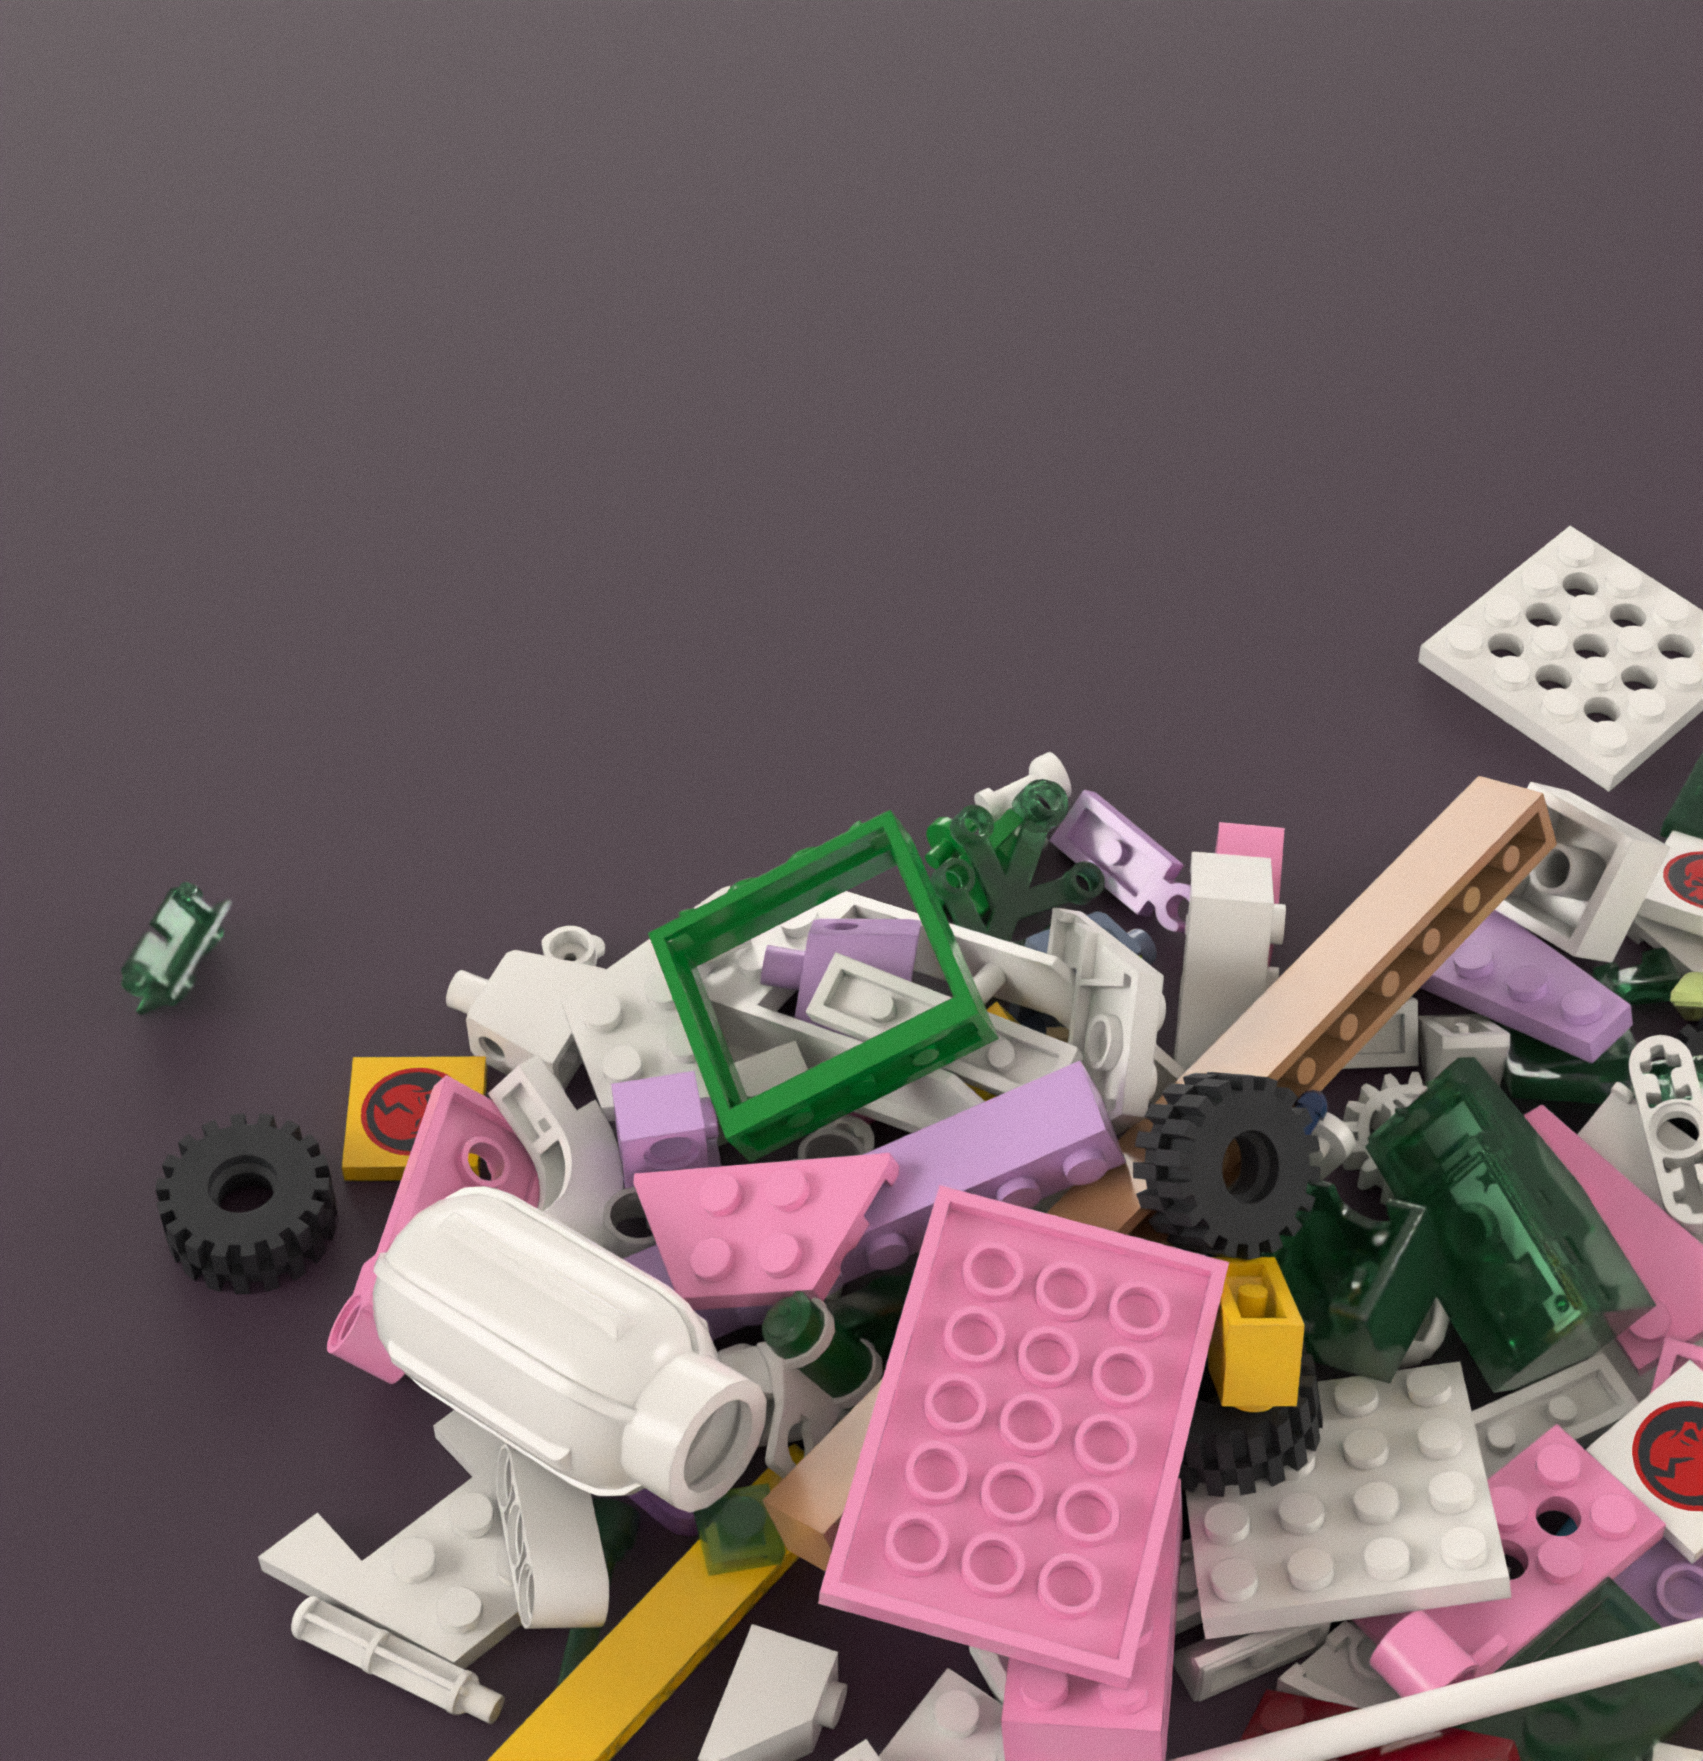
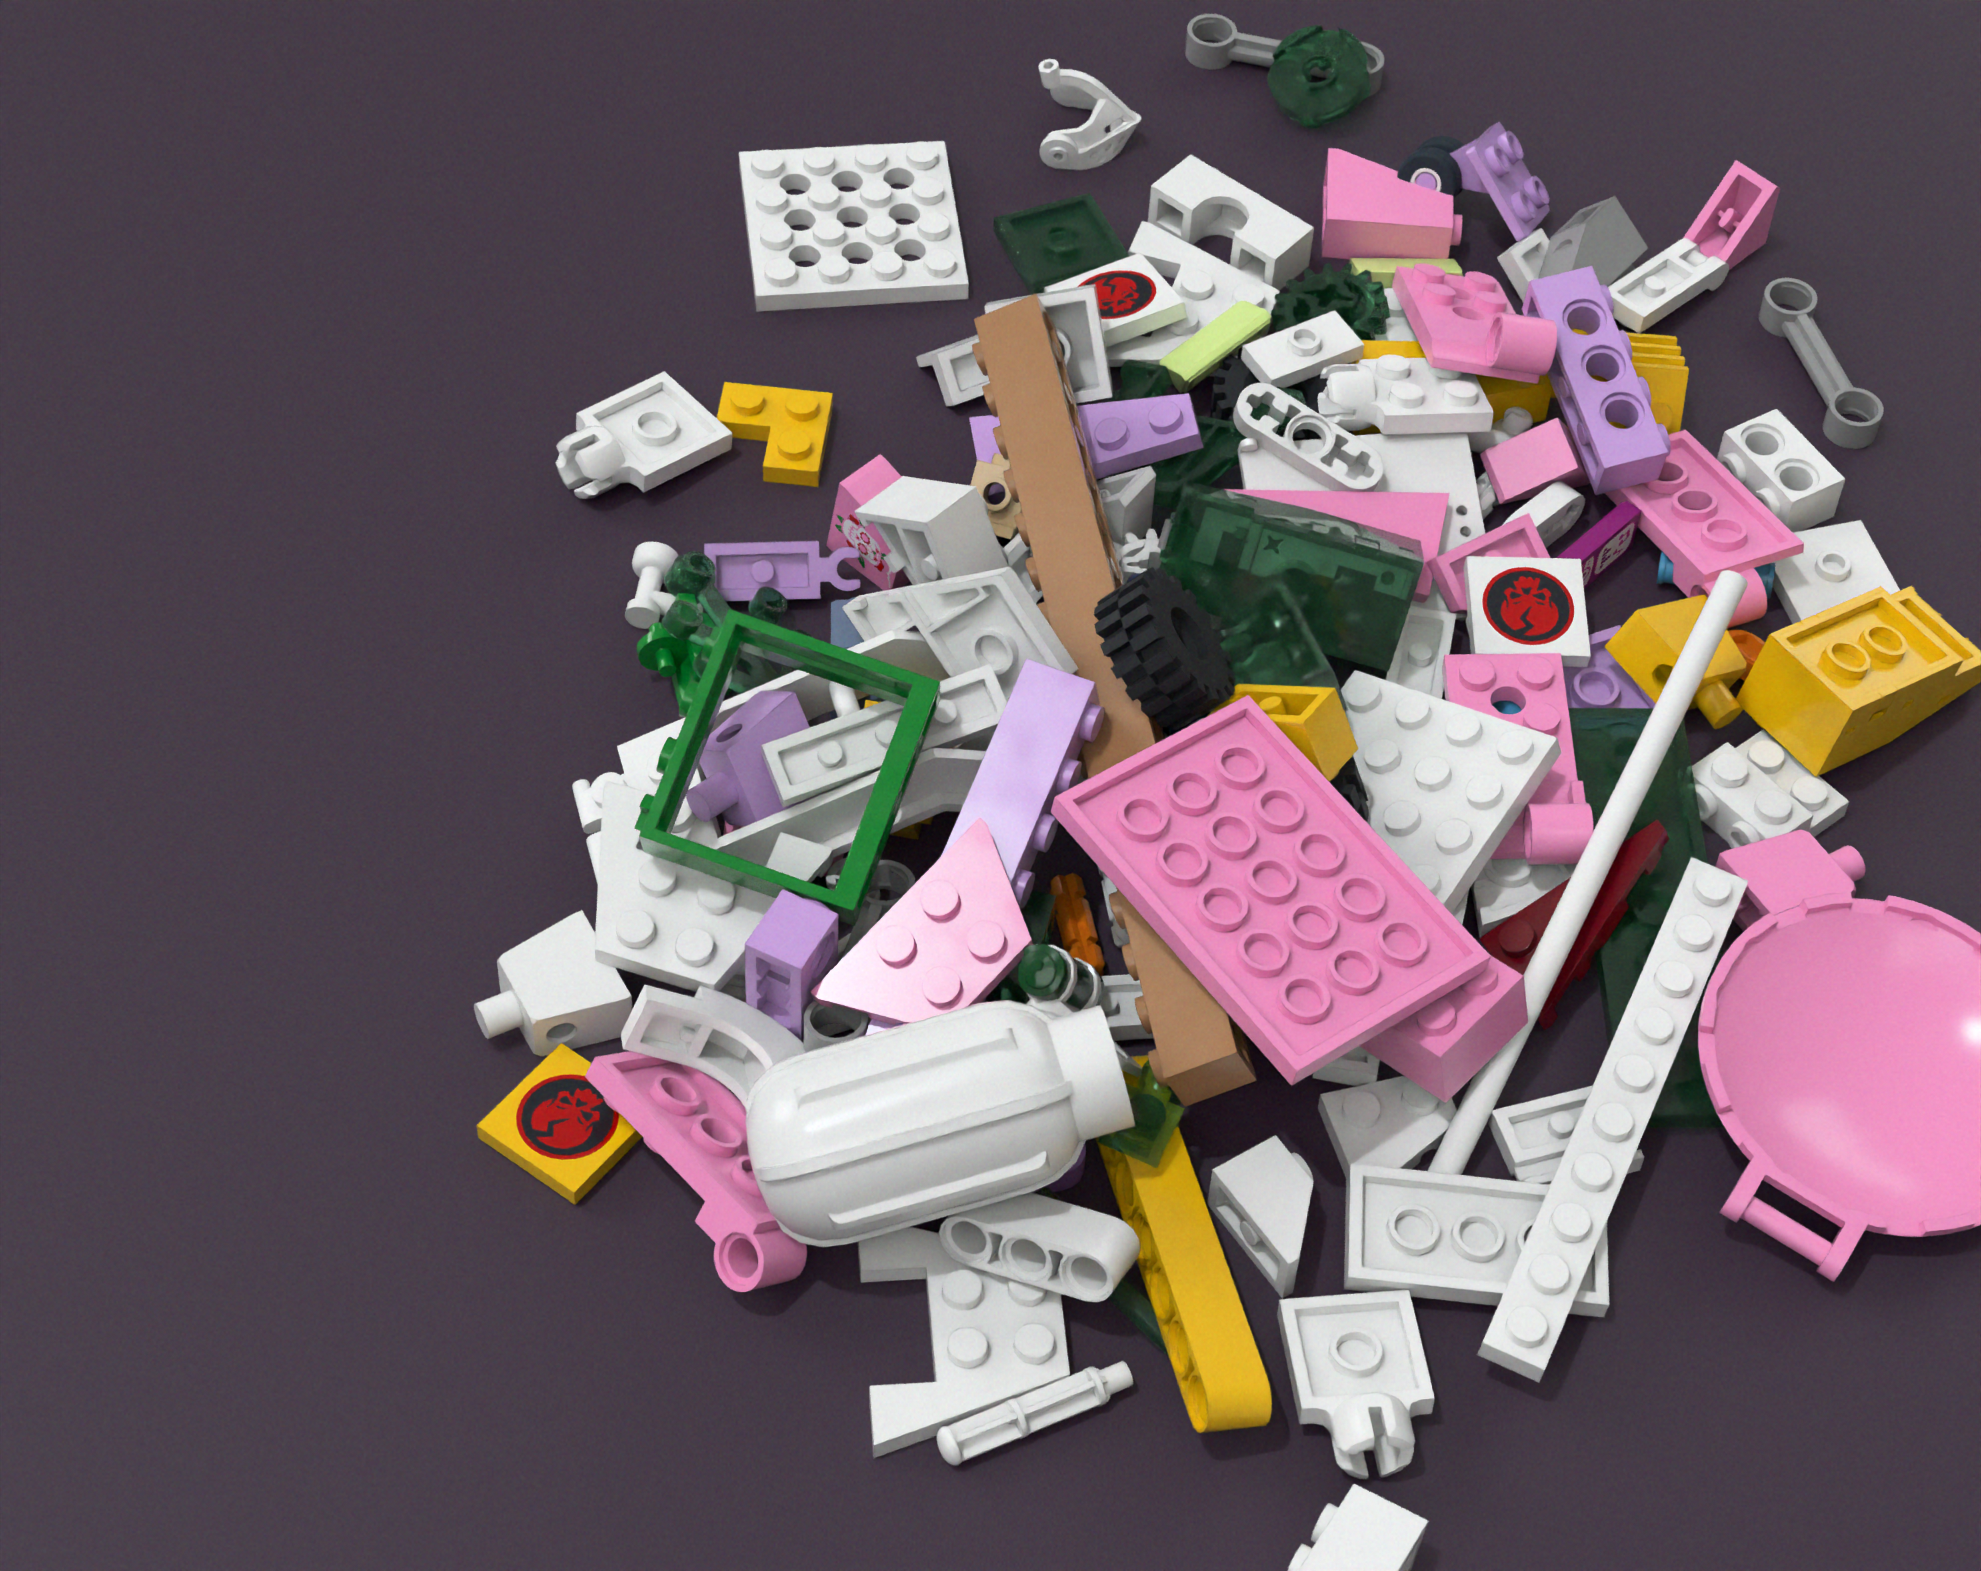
camera: 55 degrees left, 0 degrees up
(165, 969) = (255, 1175): clear green hinge -> none
(256, 1242) = (560, 1309): black tyre -> none
(573, 944) = (511, 926): white plate -> none
(1170, 677) = (639, 439): none -> white plate
(1309, 765) = (791, 422): none -> yellow plate

